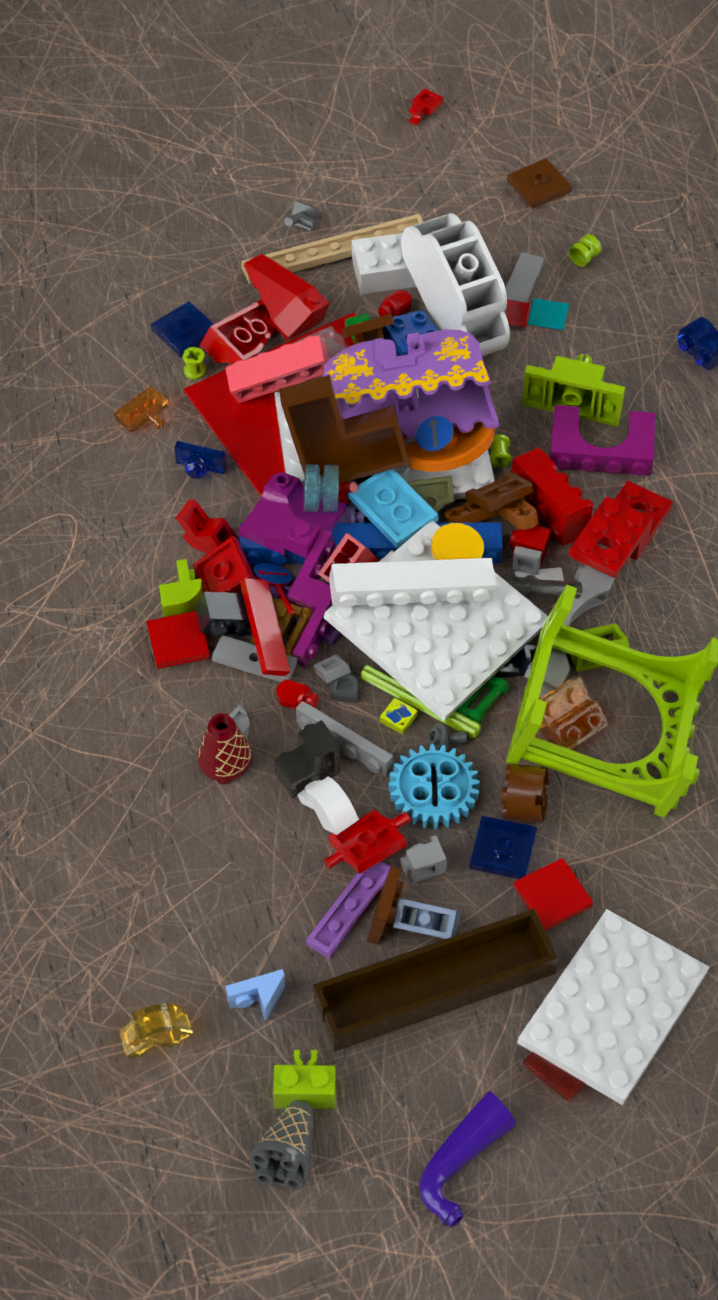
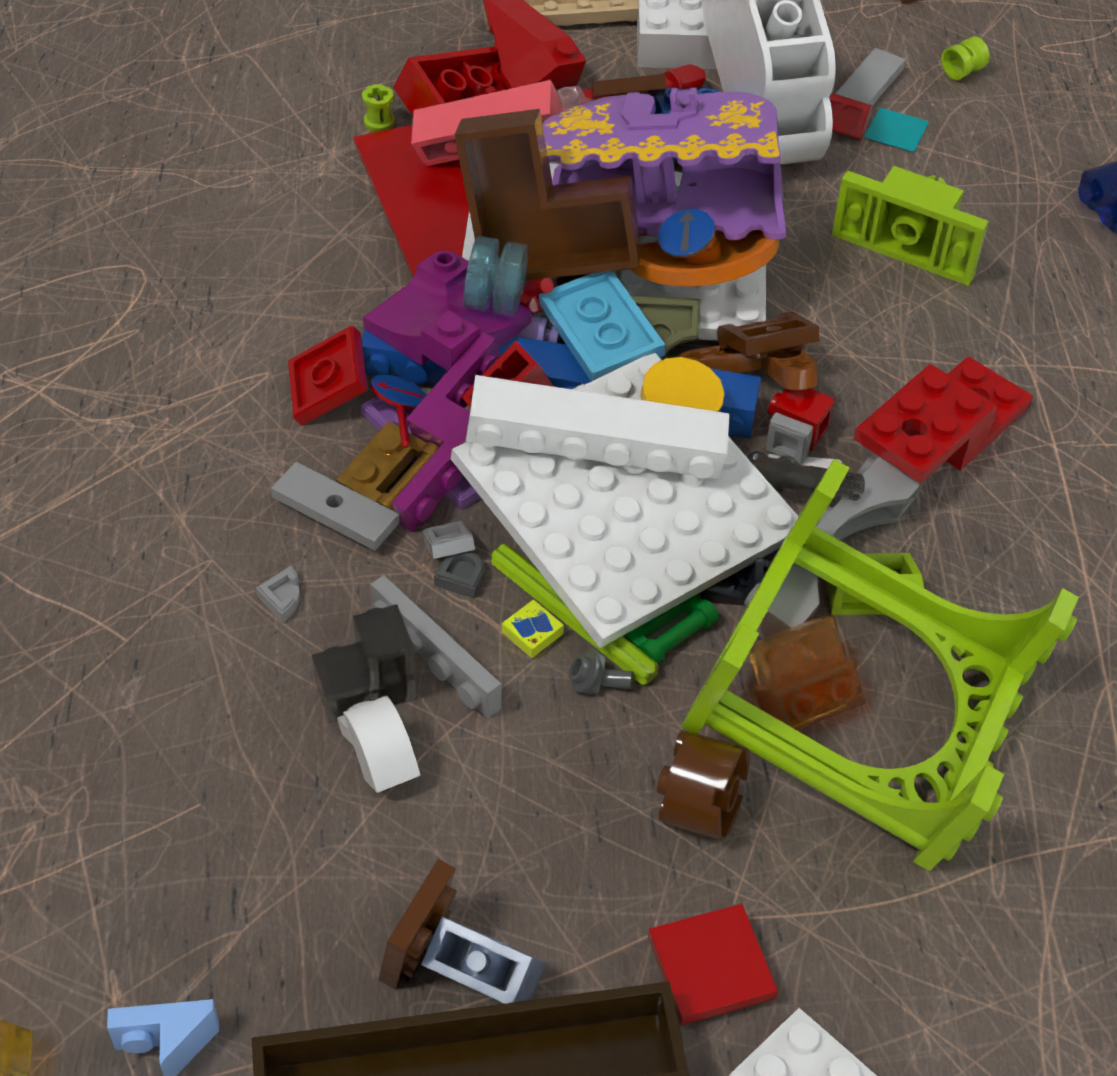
camera: 10 degrees right, 5 degrees down
(142, 410) = (287, 153): clear orange plate -> none
(177, 640) = (229, 458): red tile -> none
(182, 328) = (374, 62): clear blue plate -> none
(182, 595) = (256, 400): lime brick -> none
(199, 459) = (345, 226): clear blue tile -> none
(200, 530) = (312, 311): red brick -> none
(223, 614) = (311, 431): black brick -> none
(224, 750) = (240, 625): dark red cone -> none
(265, 627) = (359, 460): tile -> none
(291, 694) = (373, 561): red arm -> none
(348, 910) = (359, 921): medium lavender tile -> none
(367, 841) = (424, 813): red plate -> none
(424, 860) = (509, 863): light grey brick -> none
(460, 785) = (515, 738): medium azure gear -> none
(499, 451) = (783, 279): lime bush -> none
(503, 847) = (646, 868): clear blue plate -> none
(553, 496) = (849, 356): red wedge -> none
(574, 453) = (976, 325): magenta arch -> none

